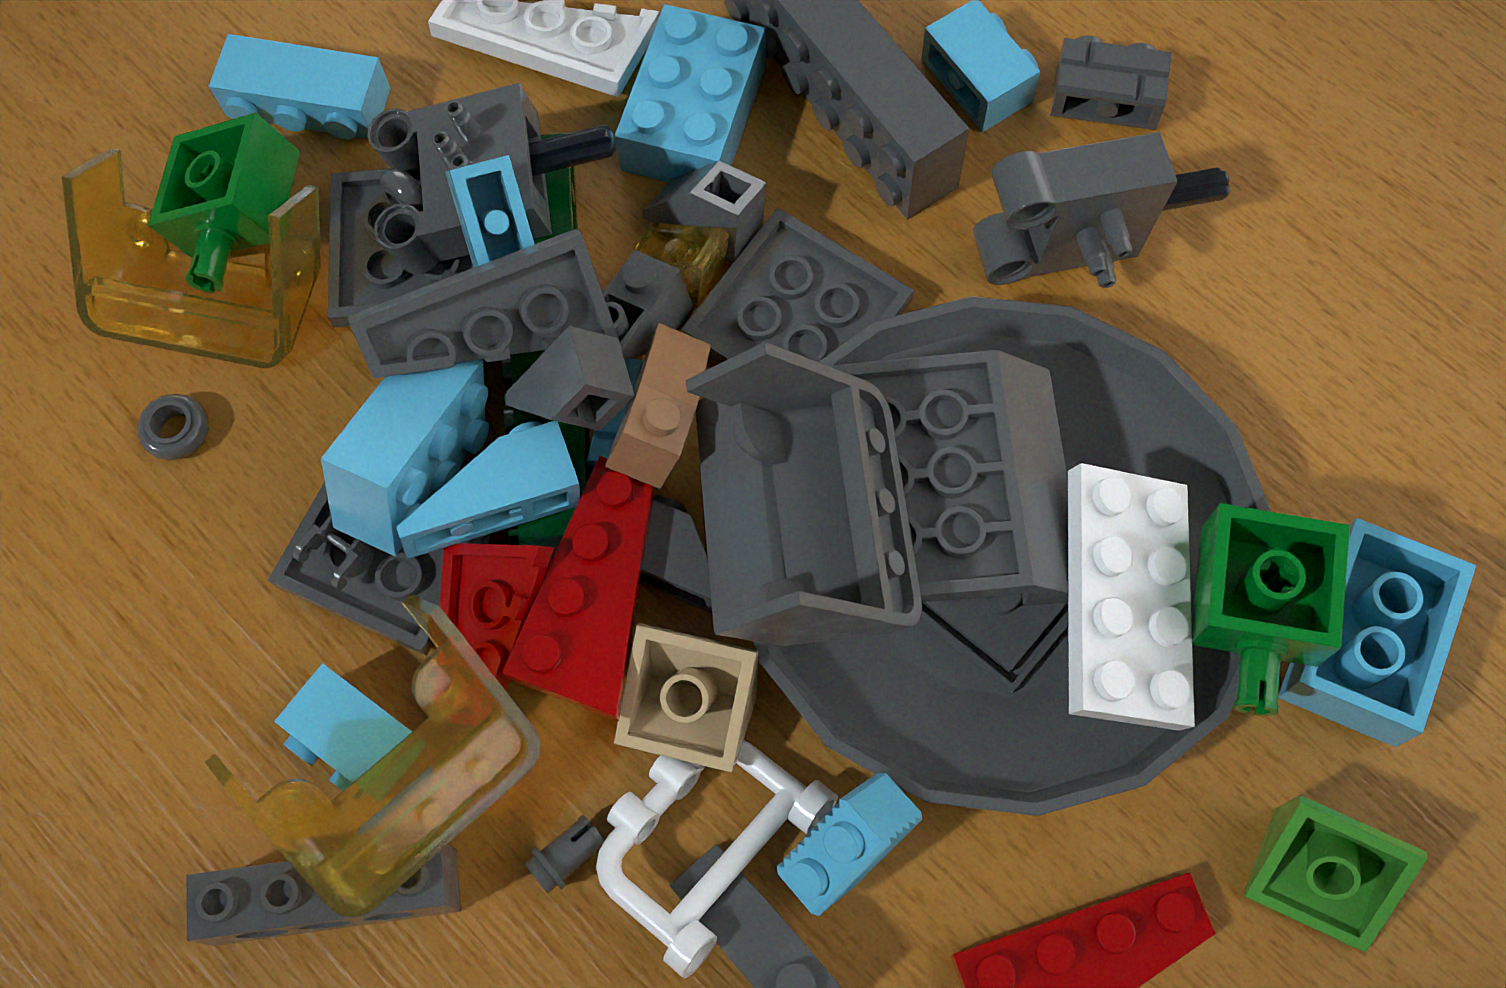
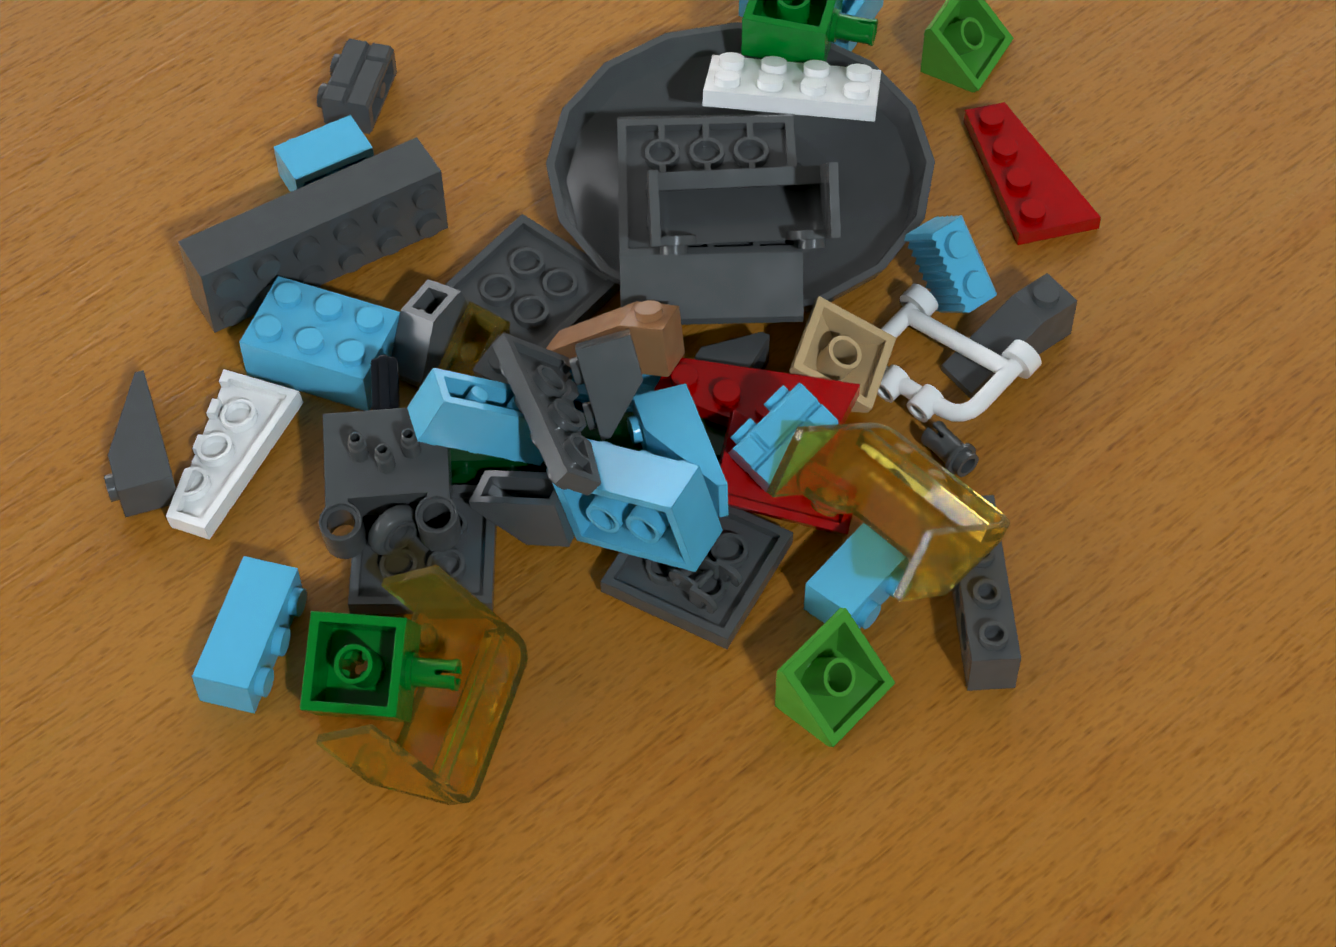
camera: 90 degrees left, 15 degrees down
(157, 414) = (579, 747): dark grey piece -> none
(205, 708) = (832, 680): none -> bright green slope
(494, 608) = (764, 444): none -> medium azure brick
(1084, 207) = (487, 97): dark grey piece -> none

